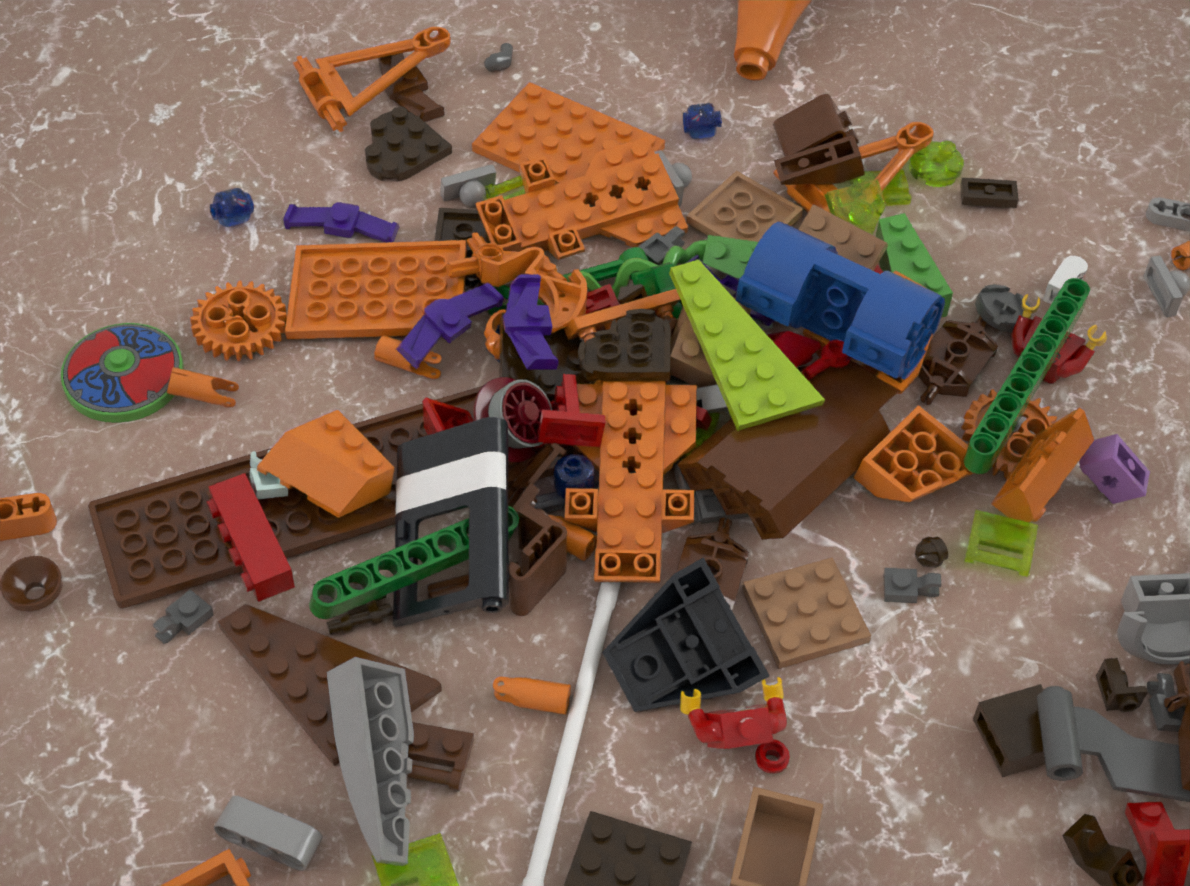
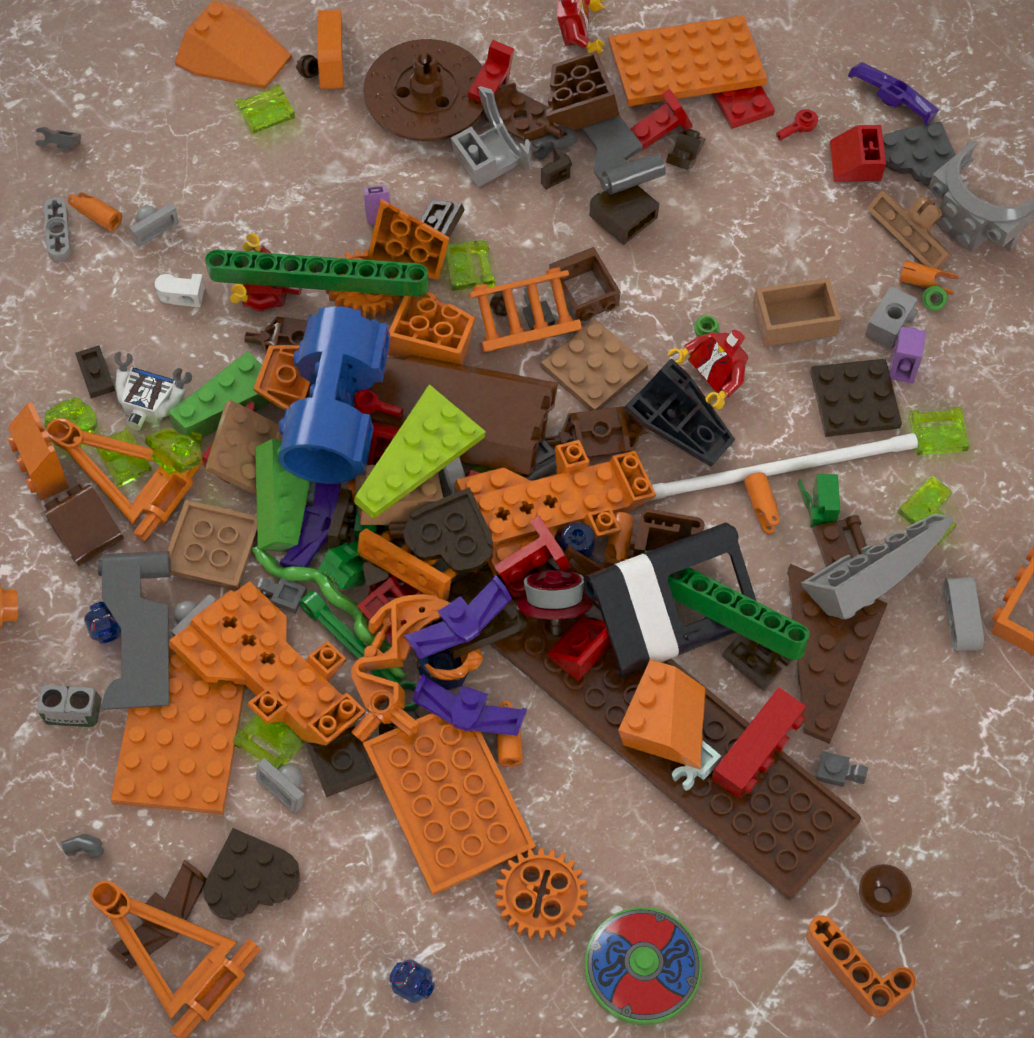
camera: 115 degrees left, 10 degrees up
(200, 387) = (632, 885): orange piece -> none
(341, 221) = (373, 876): dark purple plate -> none
(498, 755) = (825, 499): none -> green piece
(622, 91) = (74, 717): none -> light grey piece
(680, 133) = (143, 629): none -> dark grey door
(809, 744) = (706, 322): none -> bright green plate
(823, 164) = (139, 489): reddish brown slope -> none
(875, 543) = (541, 329): none -> orange fence
(892, 109) = (36, 454): none -> orange wedge
(923, 617) = (580, 264): none -> reddish brown window
(944, 216) = (147, 394): none -> torso
(999, 307) = (231, 324): dark grey tile -> none
(1074, 531) = (443, 216): none -> dark brown plate

